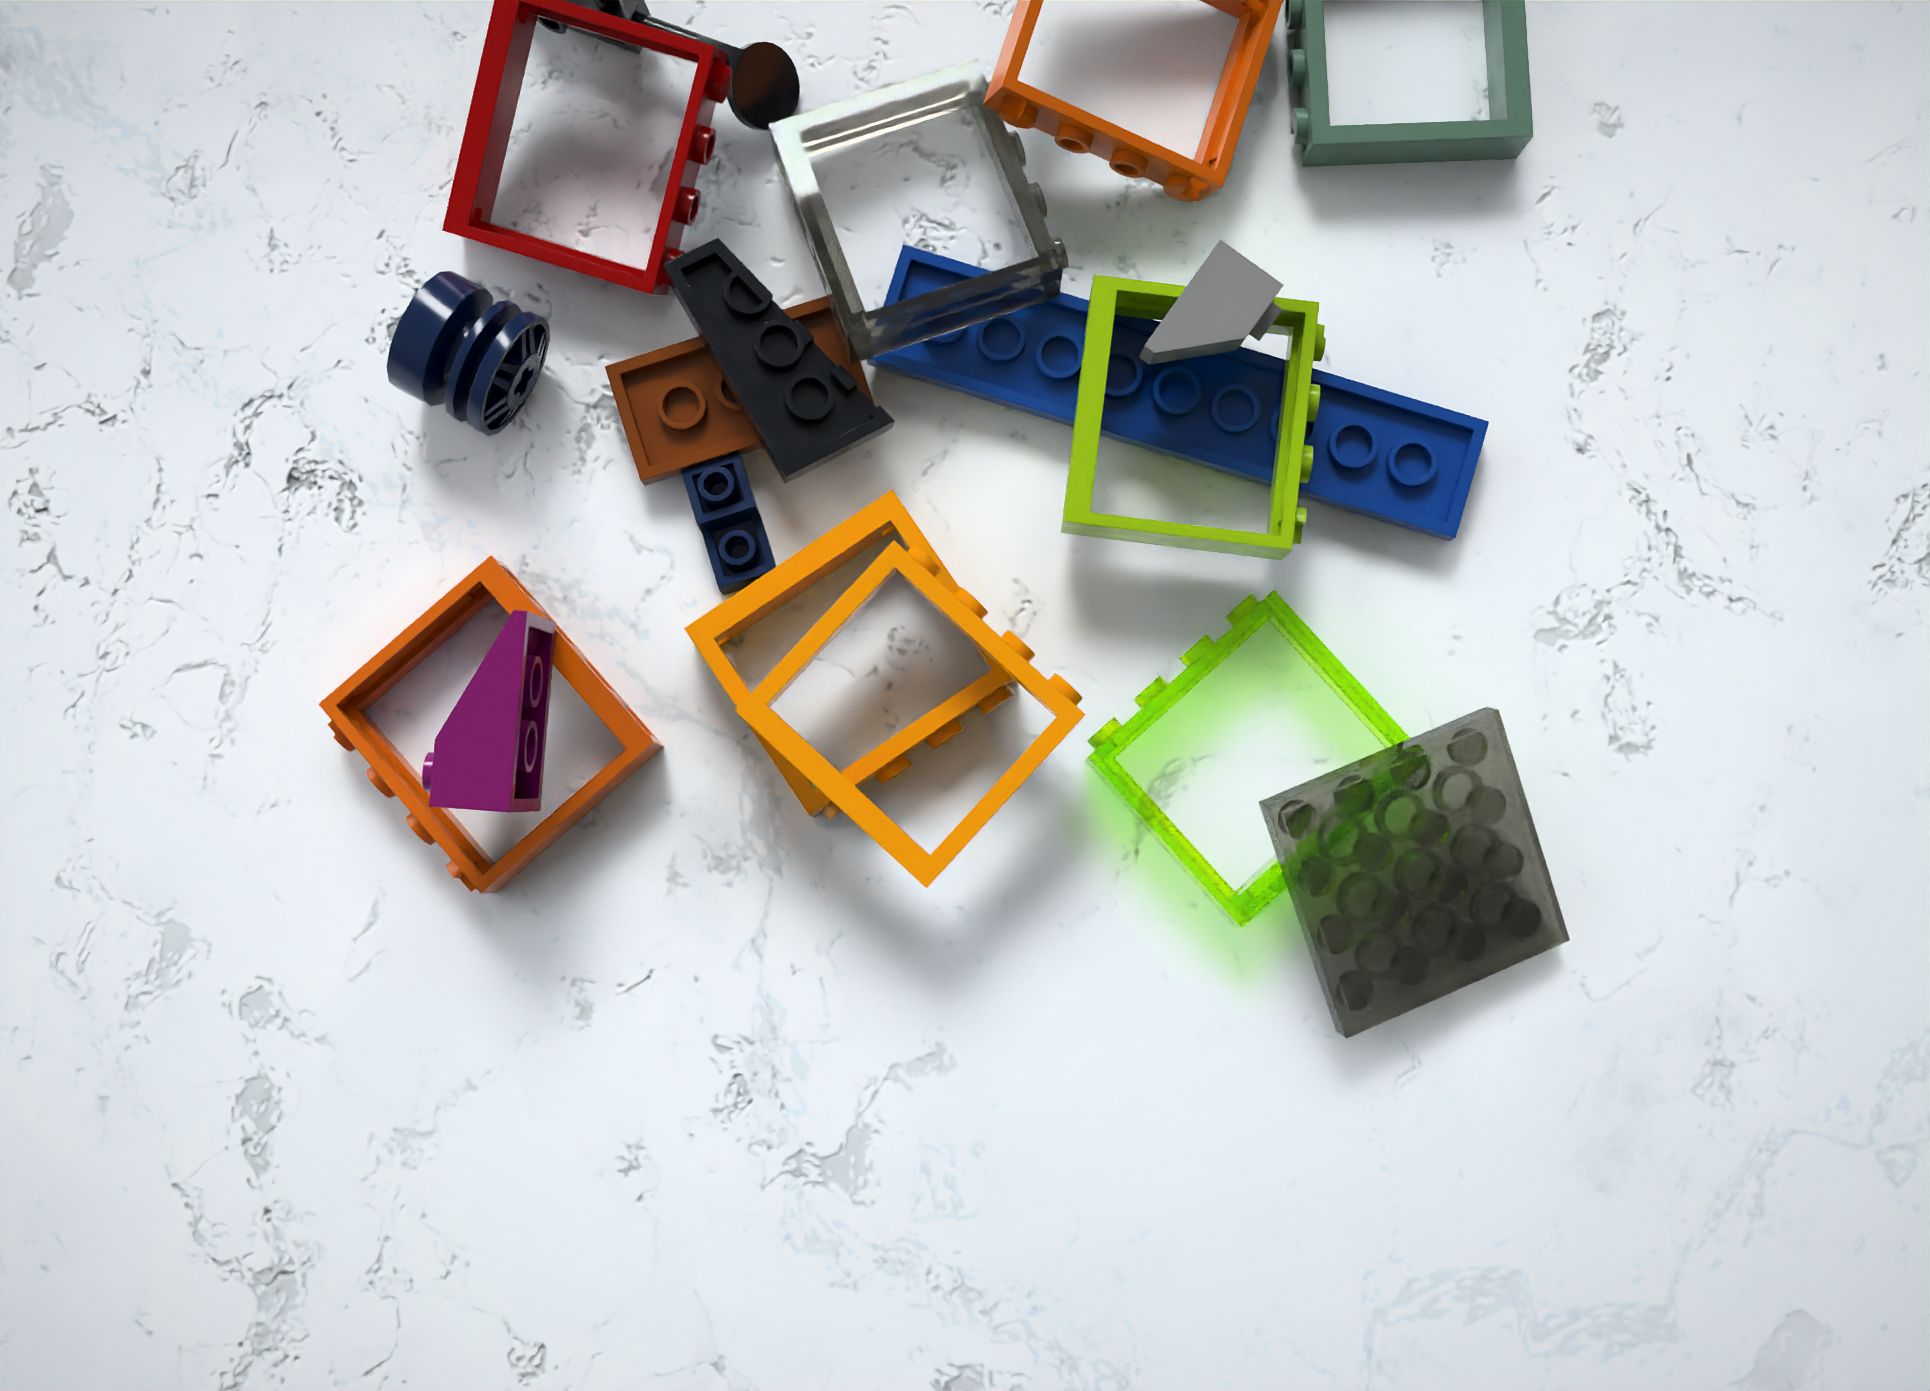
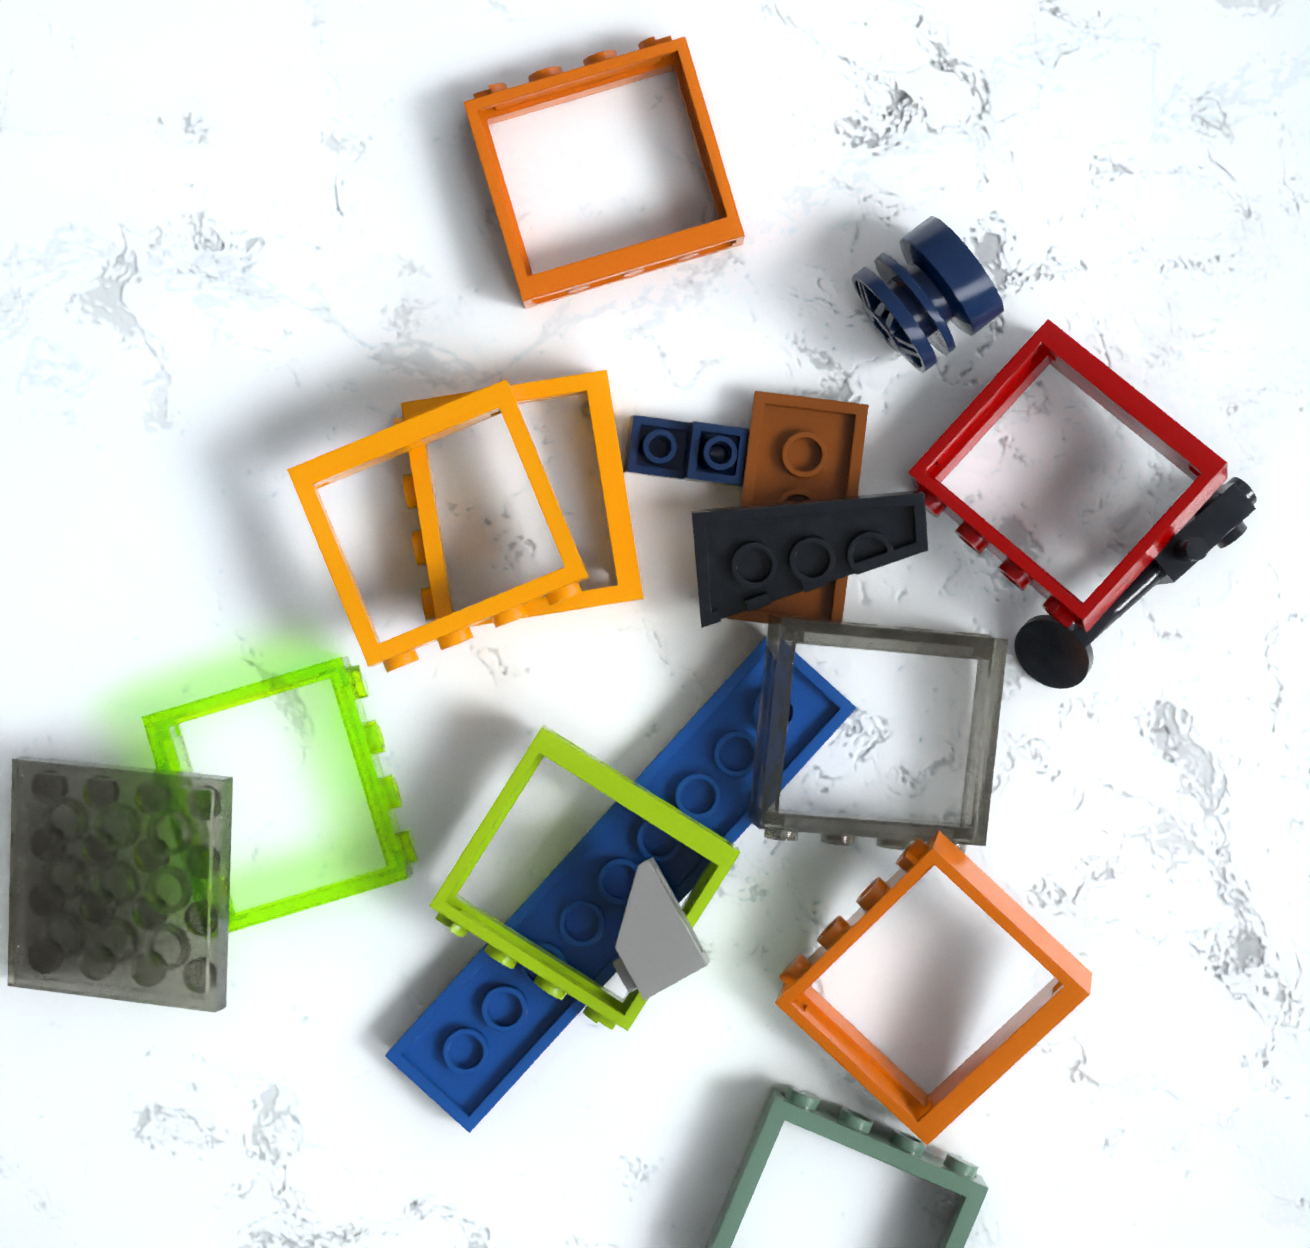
camera: 115 degrees right, 5 degrees up
(497, 732) = (568, 167): magenta slope -> none

